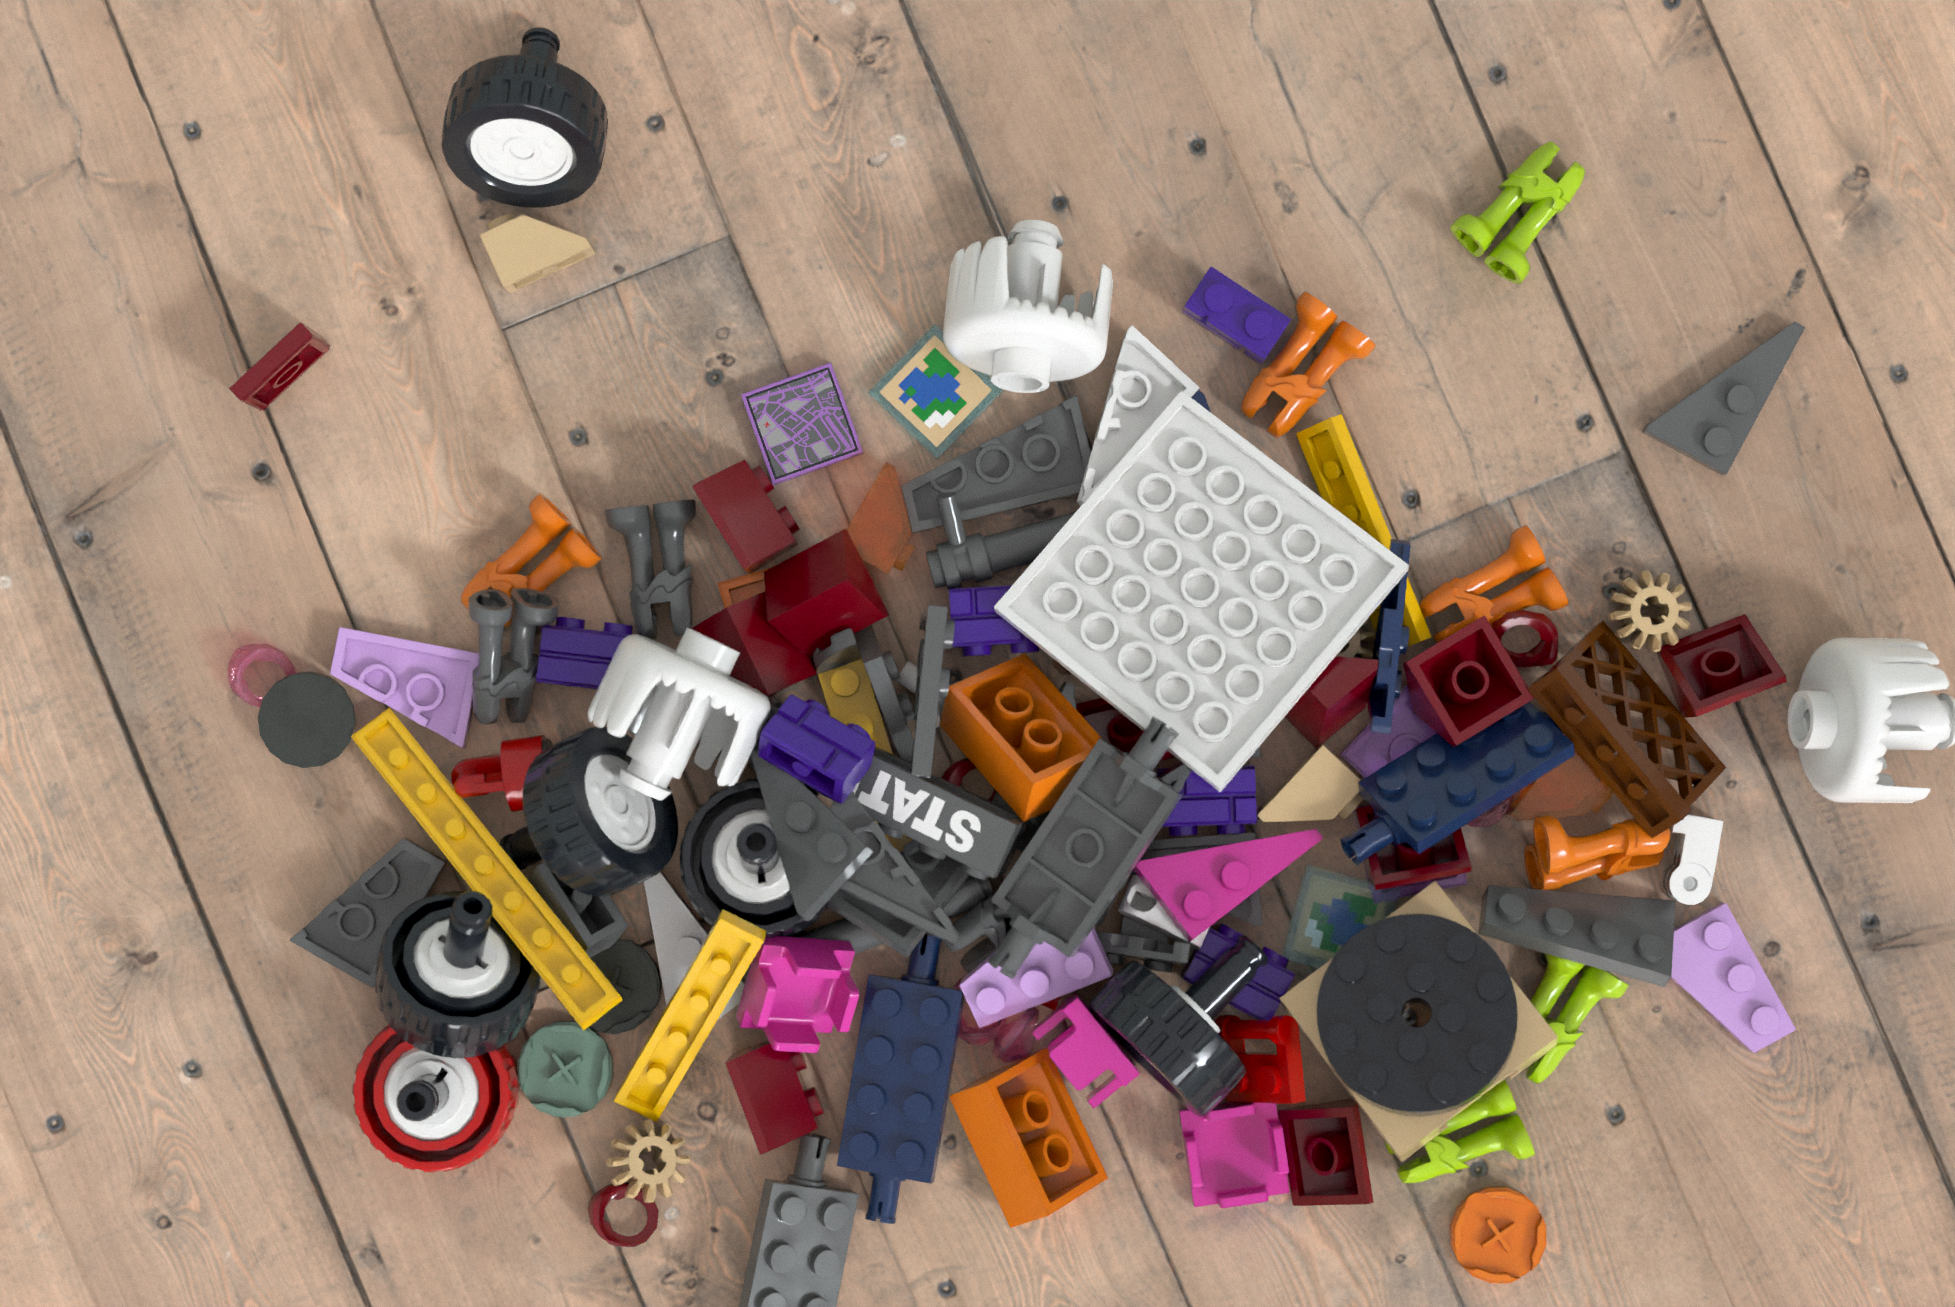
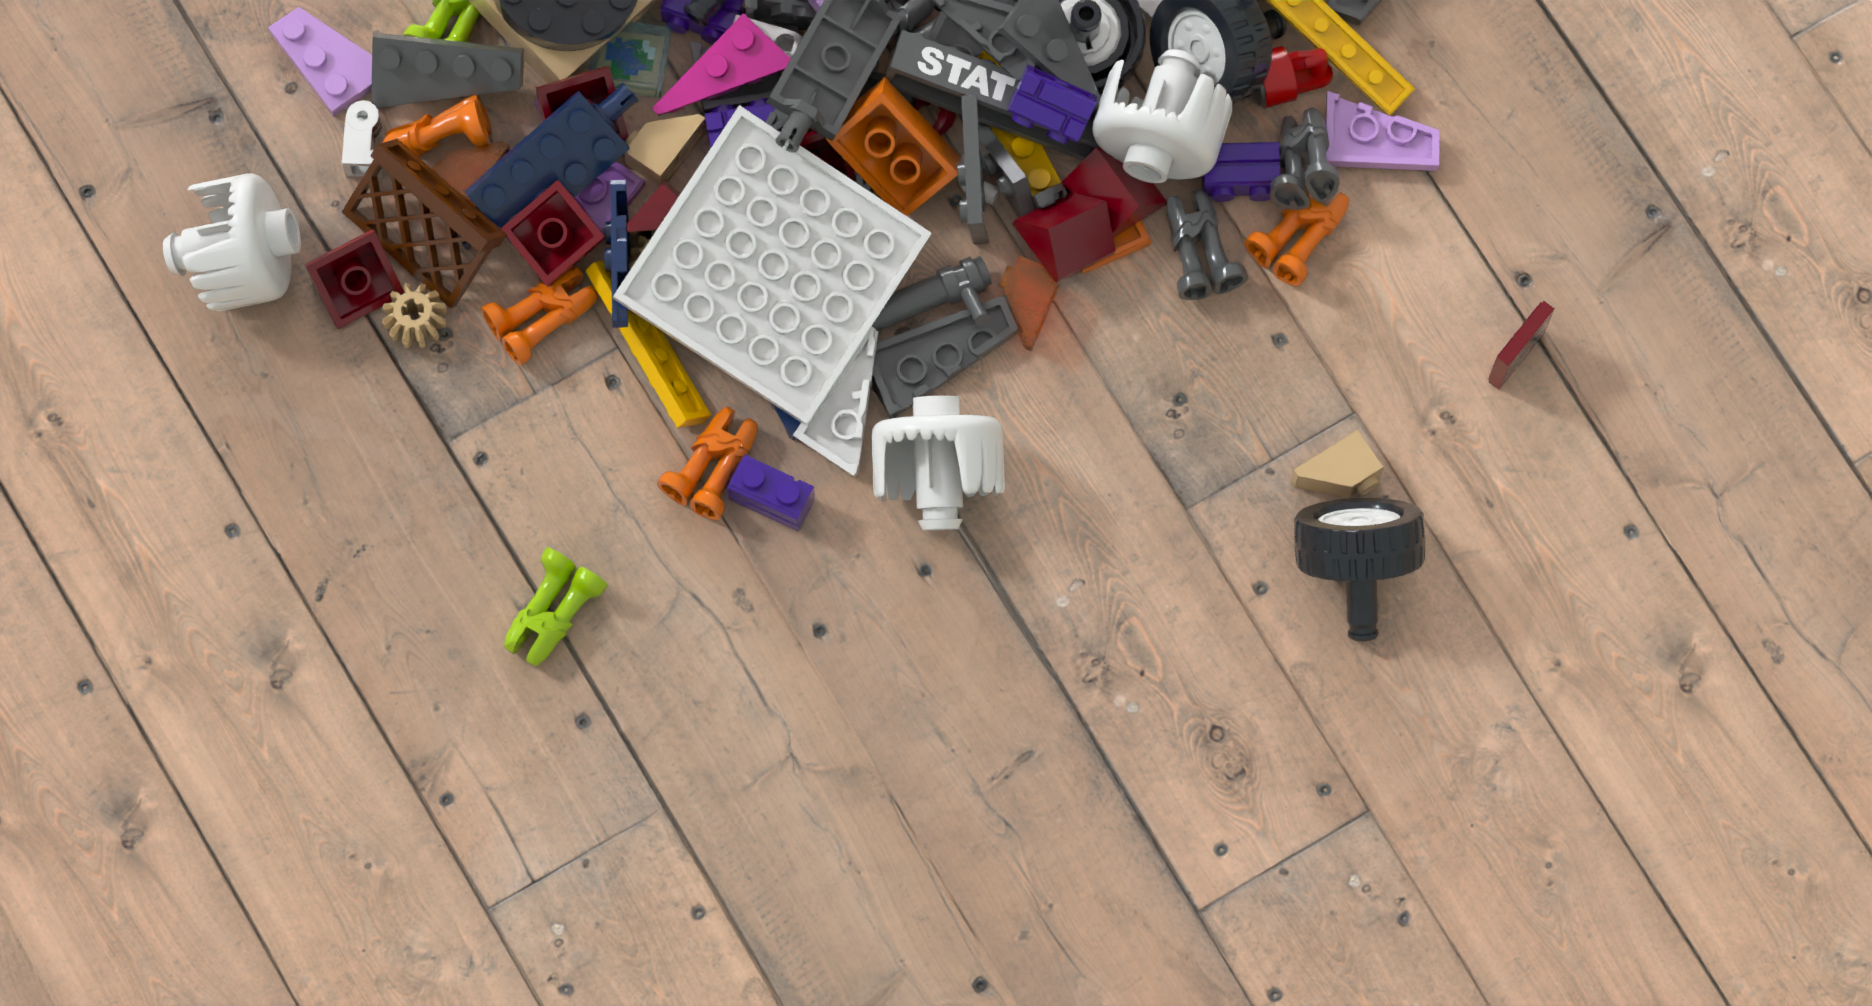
camera: 170 degrees right, 15 degrees down
(243, 657) = (1496, 142): clear pink piece -> none
(306, 719) = (1452, 97): pearl dark grey tile -> none
(746, 514) = (1136, 285): dark red slope -> none
(802, 424) = (1104, 370): tile -> none
(934, 393) = (1011, 400): tile -> none
(980, 626) = (946, 243): dark purple brick -> none
(1545, 651) = (497, 273): dark red piece -> none
(1720, 414) = (373, 475): dark grey wing -> none

